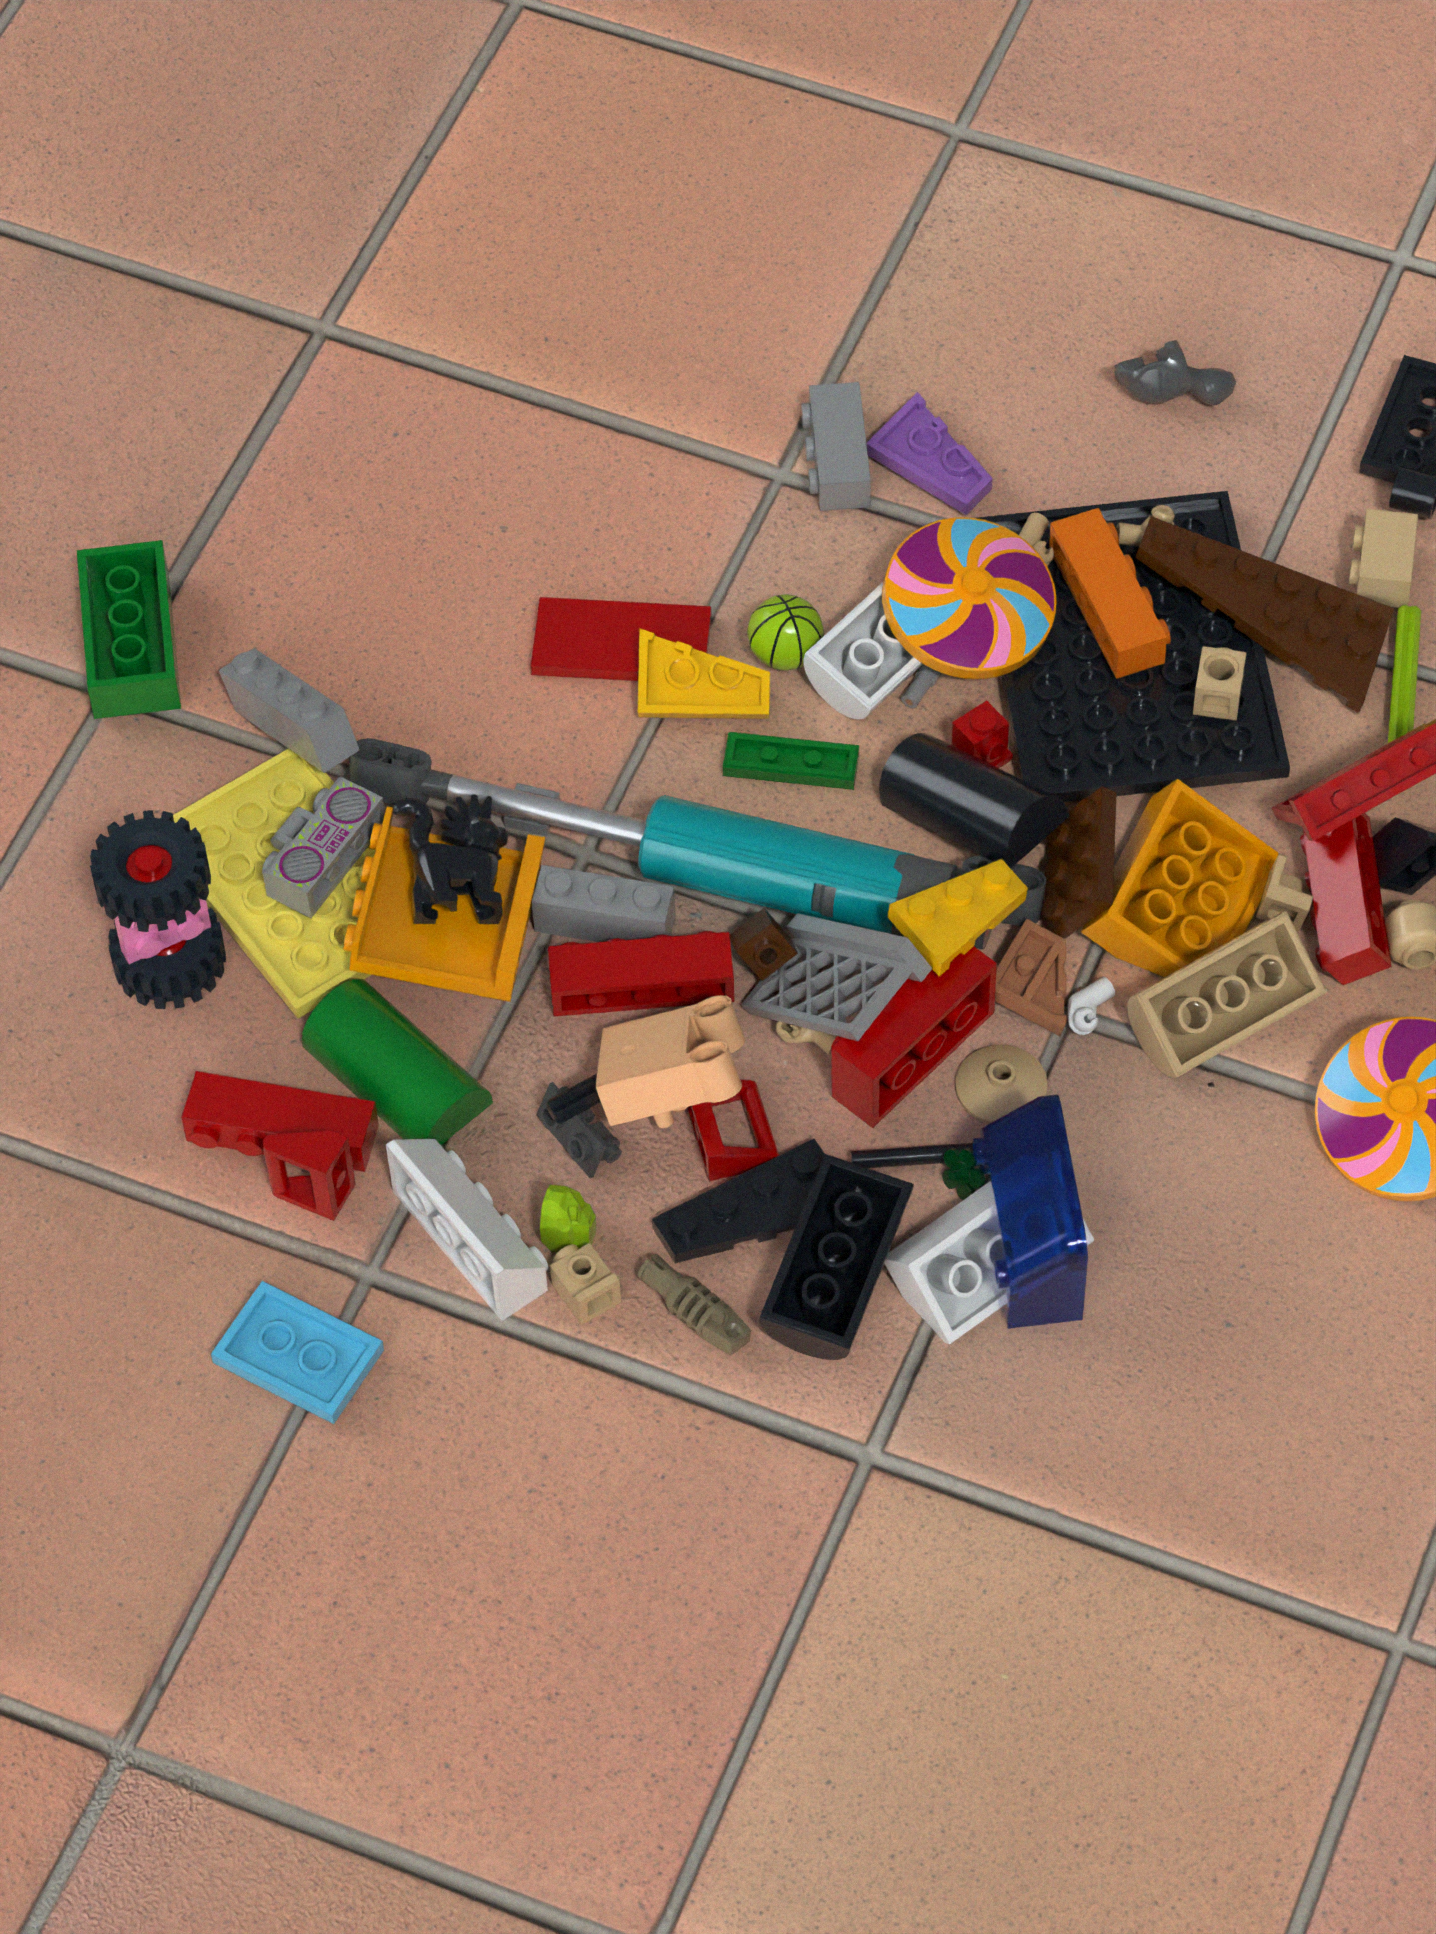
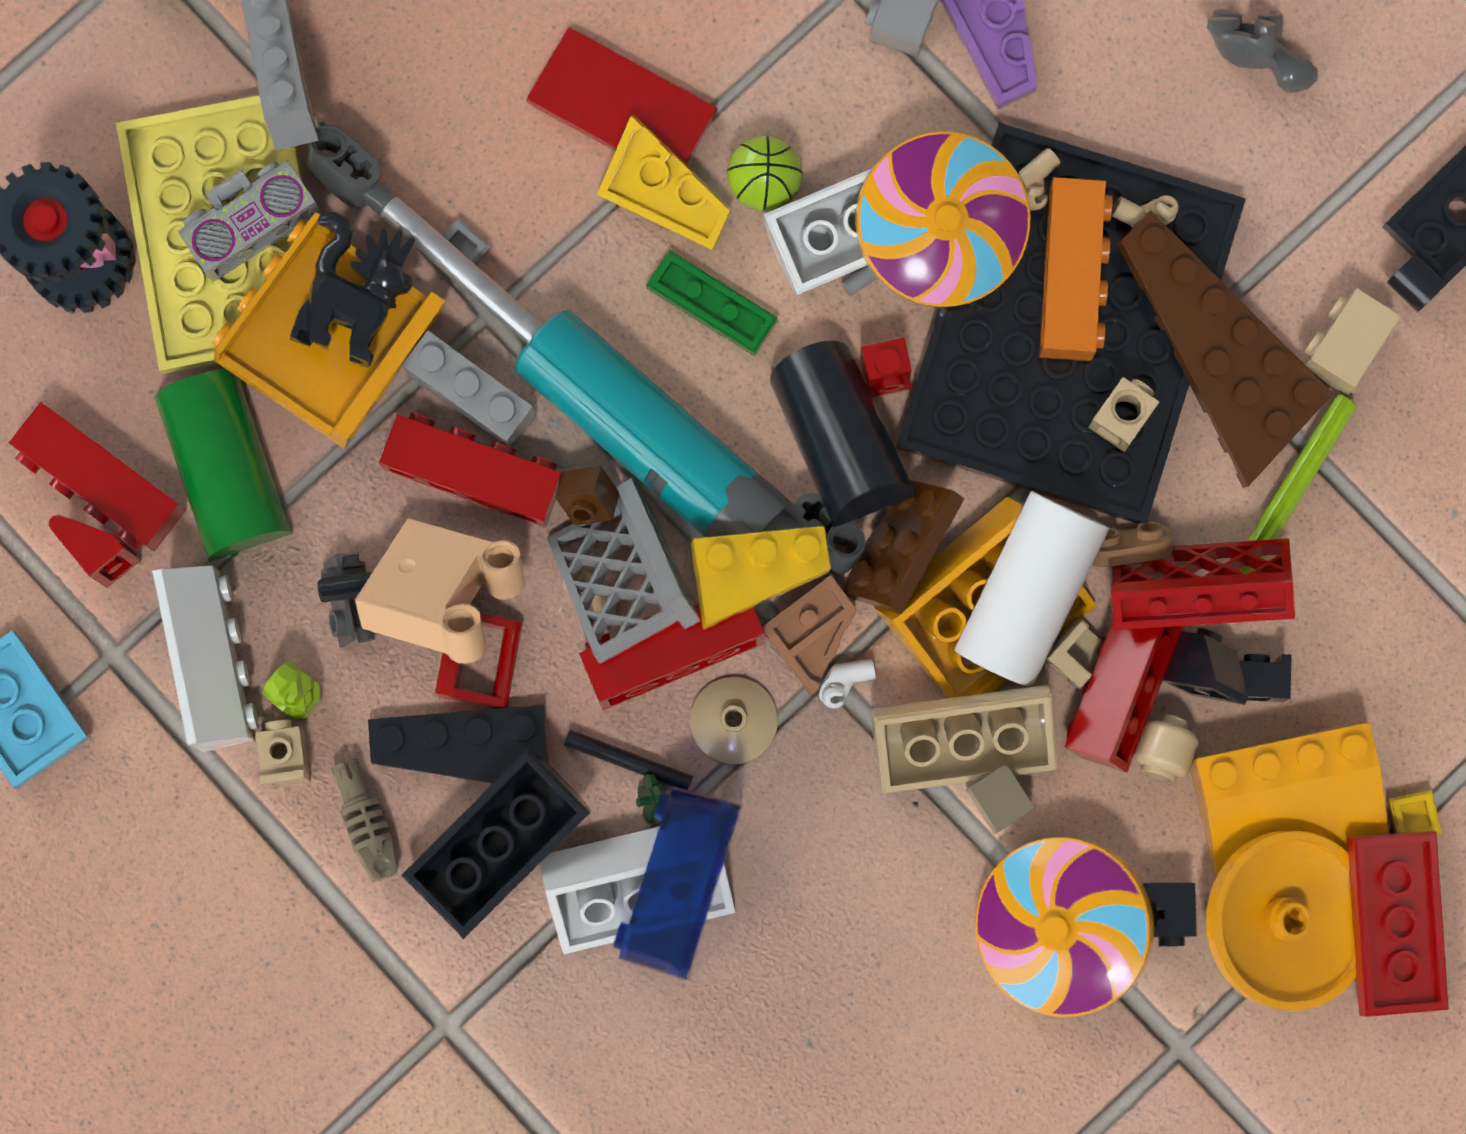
camera: 25 degrees right, 25 degrees up
(1218, 842) = (1031, 589): none -> white brick
(1269, 798) = (1135, 545): none -> medium nougat plate
(1288, 1038) = (1000, 799): none -> dark tan panel

